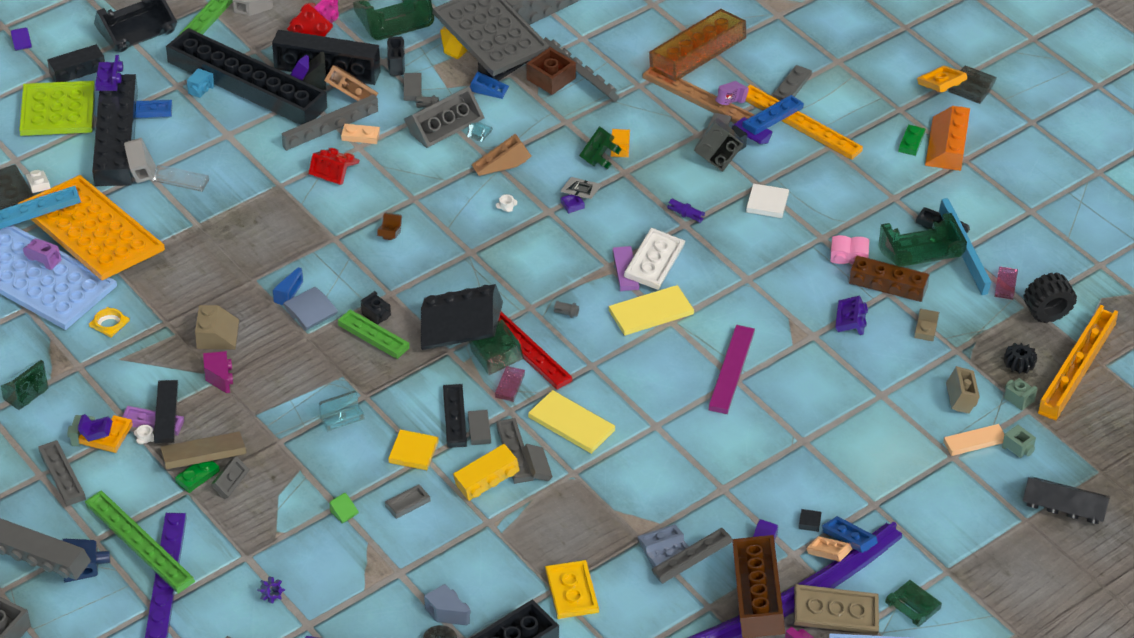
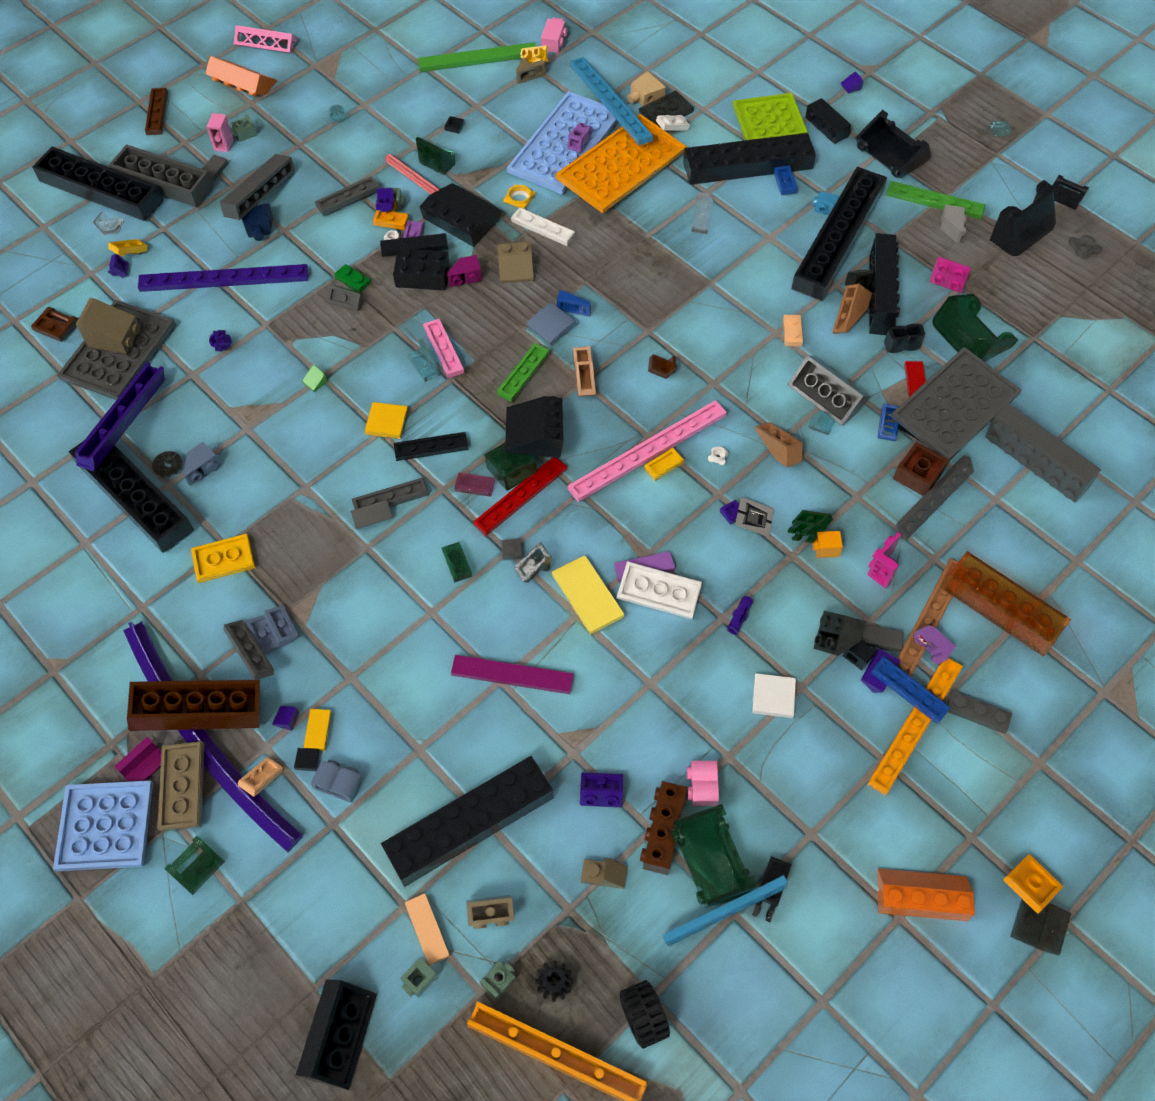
camera: 85 degrees right, 15 degrees up
(53, 408) = (411, 174): none -> axle
(109, 75) = (802, 134): dark purple bracket -> none
(127, 369) = (460, 213): none -> black slope
(140, 160) = (704, 177): light grey slope -> none
(140, 542) = (271, 251): bright green tile -> none
(161, 306) = (543, 226): none -> white tile
(203, 450) = (372, 275): dark tan tile -> none
(206, 406) = (421, 269): none -> black brick
(301, 68) = (852, 264): dark purple slope -> none
(310, 22) = (922, 264): red bracket -> none
(310, 398) = (443, 348): none -> bright pink plate
(329, 122) = (798, 303): dark grey plate -> none
(331, 165) = (744, 312): red bracket -> none
(375, 308) = (555, 369): black brick -> none
(387, 286) = (584, 371): none -> medium nougat slope
(407, 501) = (326, 423): dark grey tile -> none
(412, 86) = (871, 361): dark grey tile -> none
(426, 101) = (849, 371): dark grey pin -> none
(446, 62) = (914, 376): none -> red tile
(479, 427) = (416, 466): dark grey tile -> none
(486, 472) = (351, 474): yellow brick -> none
(493, 251) = (646, 451): none -> bright pink plate
(508, 243) = (663, 464): none -> yellow tile
(567, 309) = (575, 523): dark grey pin -> none
(571, 421) = (427, 538): light yellow tile -> none
(593, 360) = (511, 549): none -> flat silver tile
(604, 399) = (456, 562): none -> clear green plate
(616, 336) = (533, 562): none -> clear smoke slope
(647, 109) = (883, 566): none -> dark pink bracket
(779, 511) = (317, 729): none -> yellow tile
(835, 494) = (336, 780): none -> sand blue brick
(849, 533) = (273, 793): blue plate -> none
(879, 403) = (467, 821): none -> black brick
(912, 140) = (916, 851): green plate -> none
(1006, 283) = (685, 967): clear pink tile -> none

